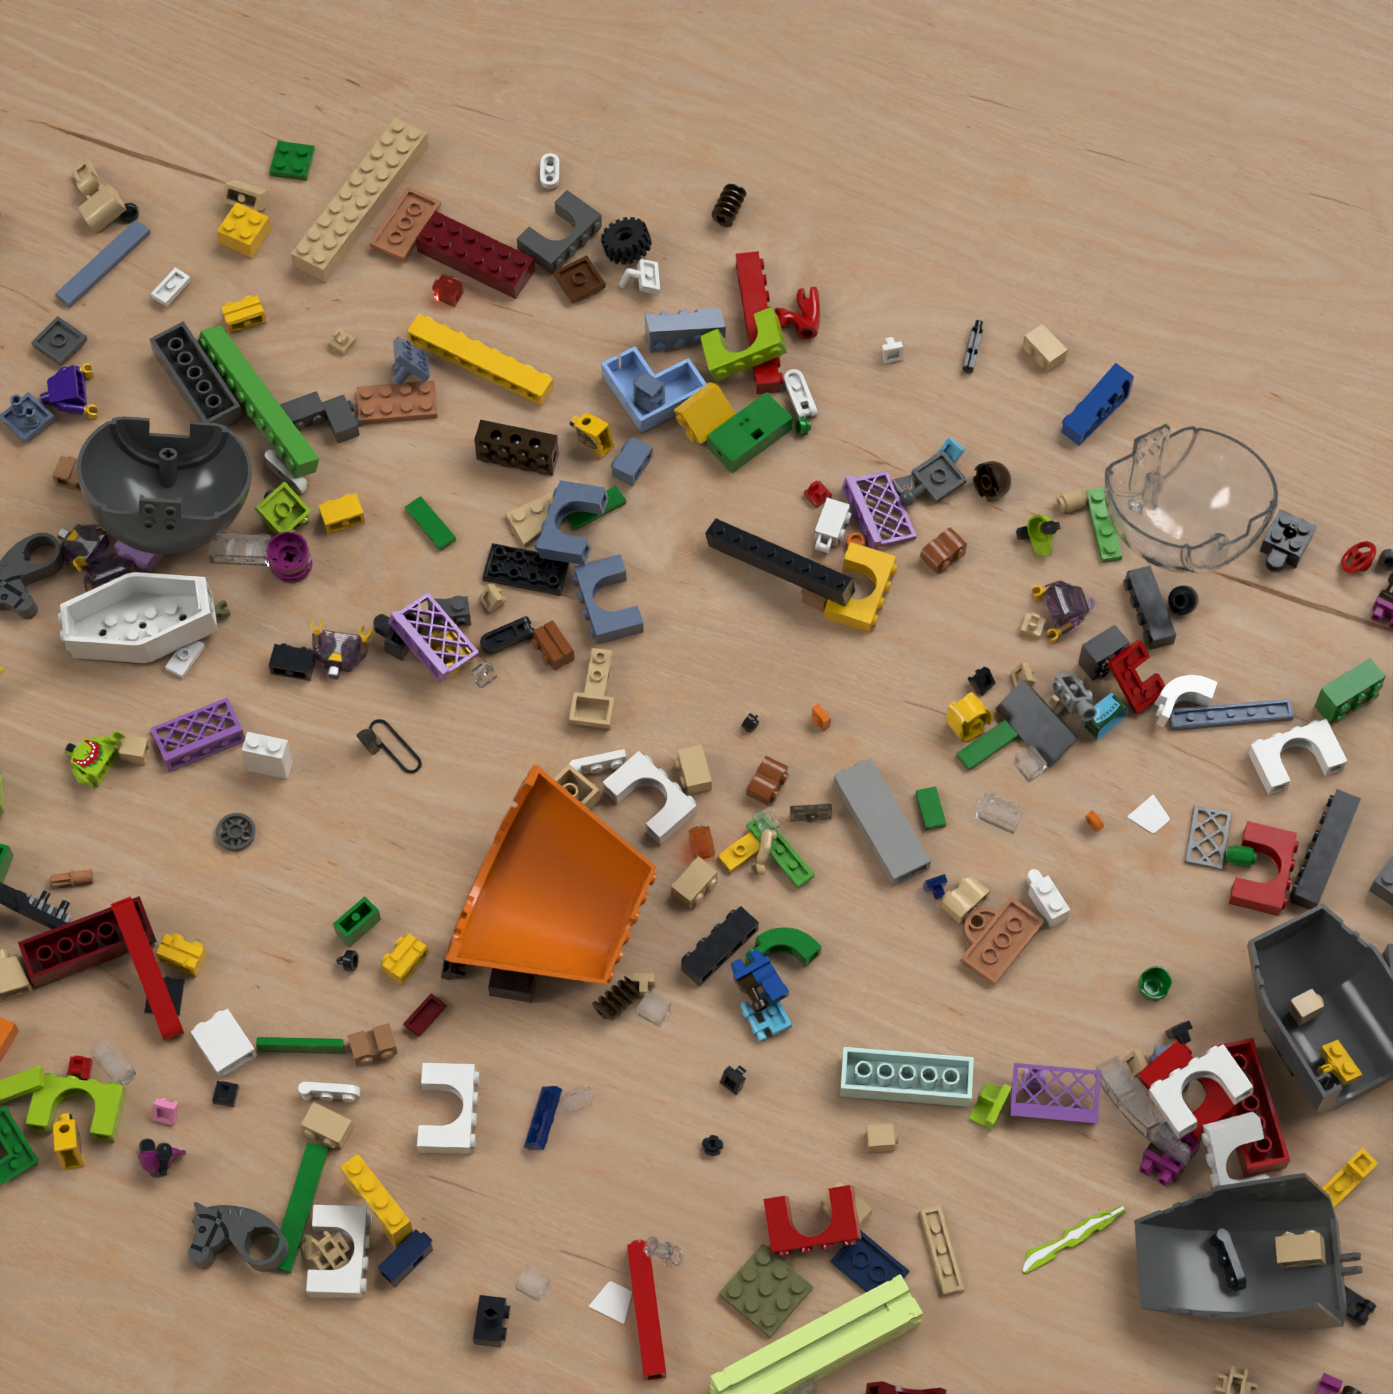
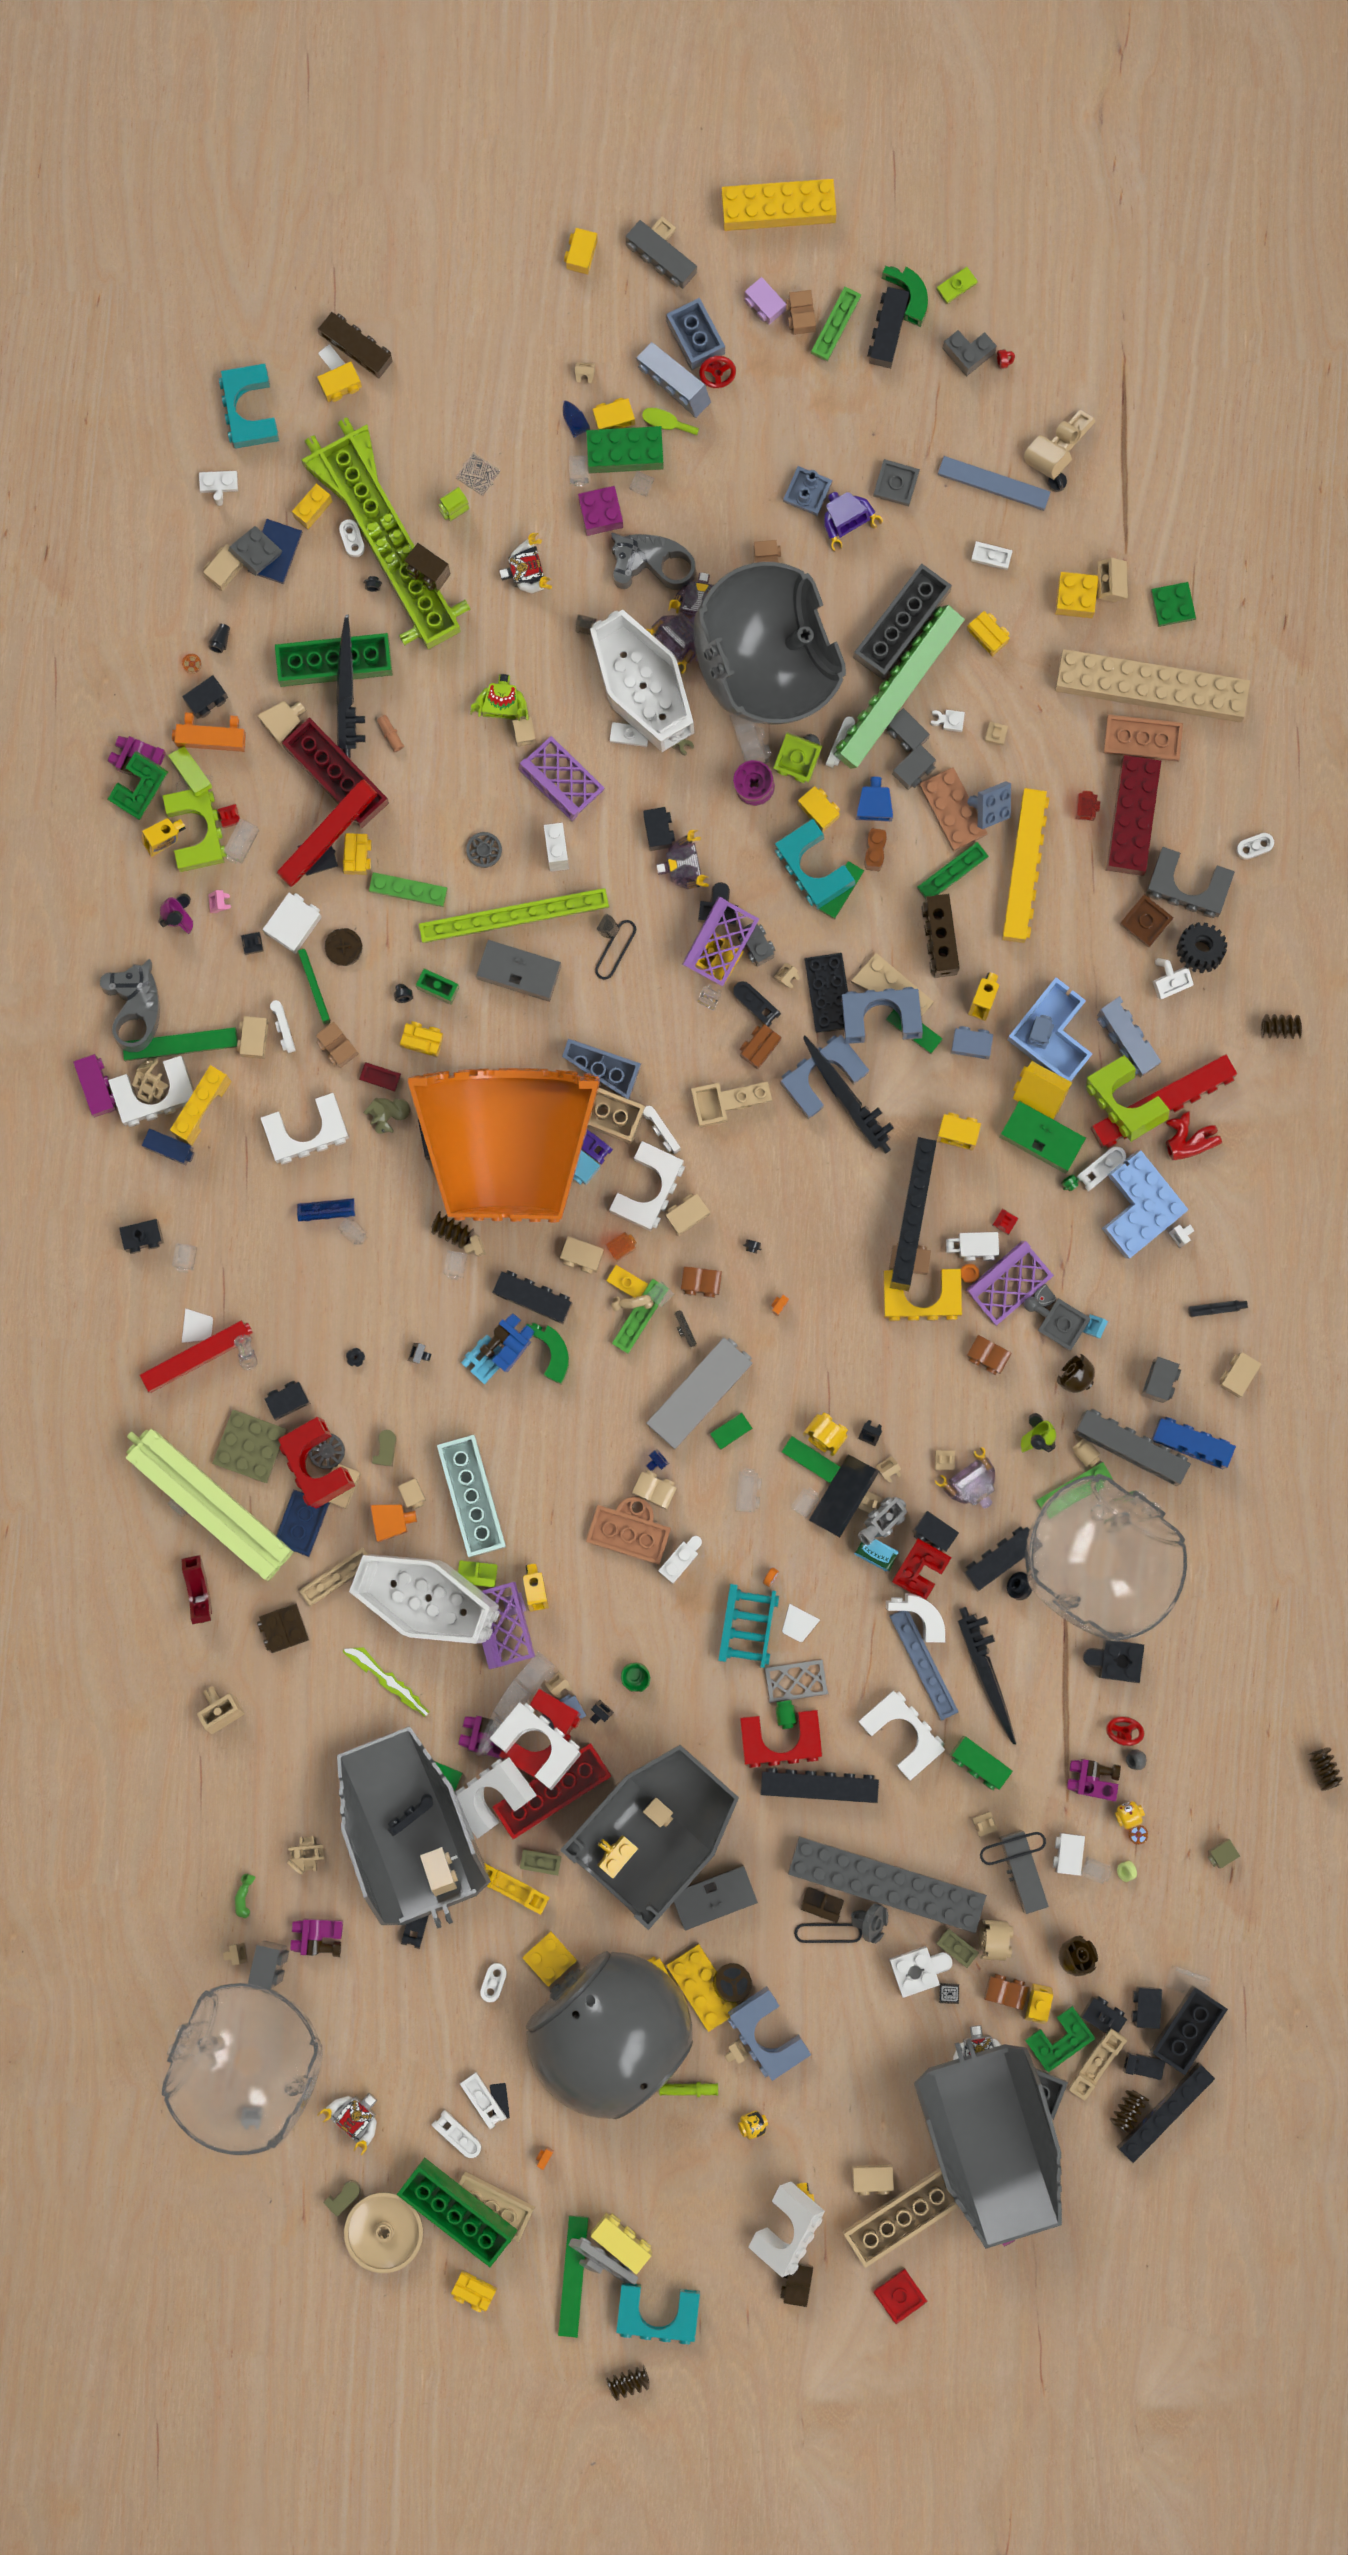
camera: 70 degrees right, 20 degrees up
(55, 656) = (584, 624): none -> clear smoke brick
(241, 919) = (408, 889): none -> bright green plate
(272, 1004) = (343, 947): none -> dark brown tile
(304, 1311) = (95, 1085): none -> magenta brick
(310, 374) = (952, 720): none -> white plate
(316, 827) = (513, 915): none -> lime plate
(359, 463) = (875, 802): none -> blue torso
(376, 839) = (518, 970): none -> dark grey brick
(407, 478) = (875, 849): none -> dark orange brick
(420, 540) = (819, 890): none -> teal arch
(457, 423) = (953, 871): none -> green tile
(462, 1024) = (383, 1109): none -> olive animal
(499, 798) = (612, 1069): none -> sand blue wedge
(649, 581) = (852, 1105): none -> black piece
(714, 497) = (958, 1131): none -> yellow brick
(732, 1231) = (287, 1400): none -> black brick
(802, 1211) = (327, 1451): none -> dark grey wheel
(823, 1147) = (387, 1449): none -> olive leg
(850, 362) = (1151, 1209): none -> light blue piece
(902, 1170) = (391, 1521): none -> orange torso
(978, 1326) = (283, 1628): none -> dark brown plate
(1004, 1133) = (406, 1605): none -> white container
(1025, 410) = (1161, 1379): none -> dark grey brick
(1028, 1048) = (535, 1595): none -> yellow torso
(1082, 456) = (1131, 1447): none -> dark grey brick
(1136, 880) = (733, 1614): none -> teal fence
(1252, 660) = (978, 1651): none -> black piece
(1320, 1148) = (540, 1862): none -> olive plate

